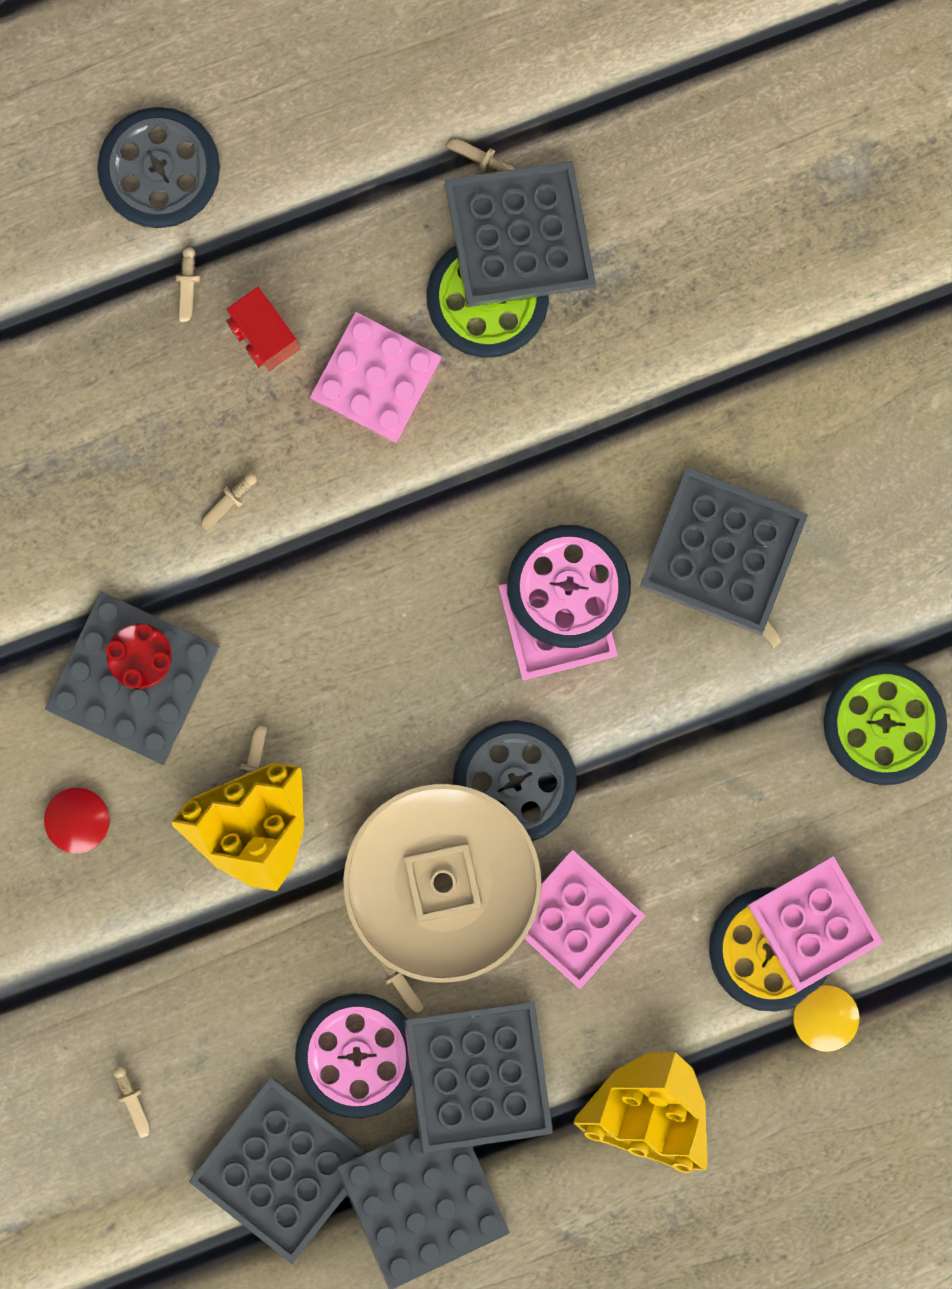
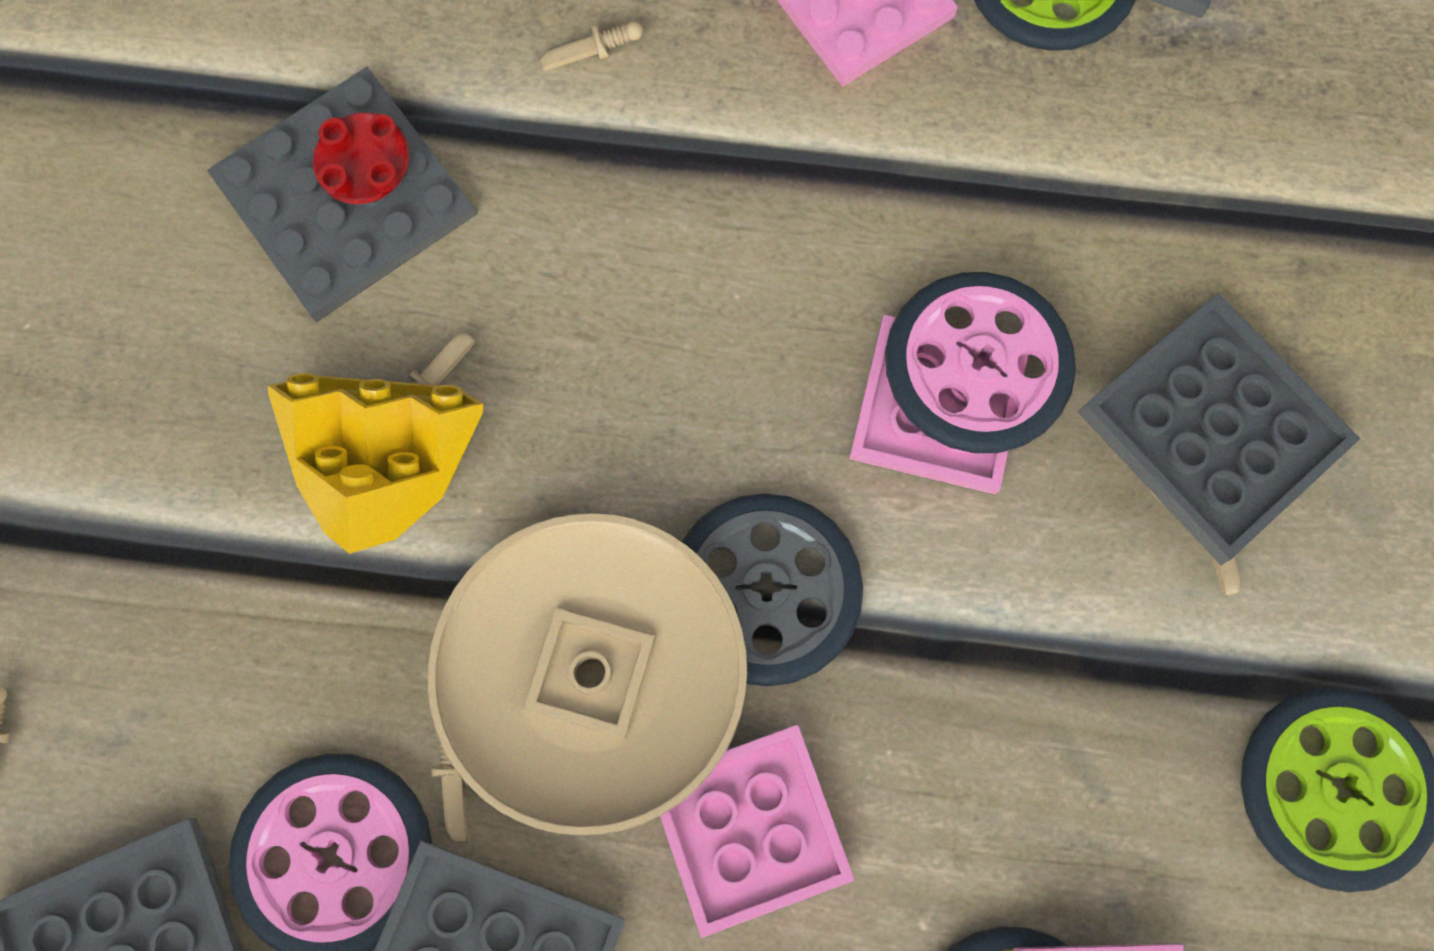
camera: 30 degrees right, 10 degrees down
(76, 820) = (158, 329): red dish -> none

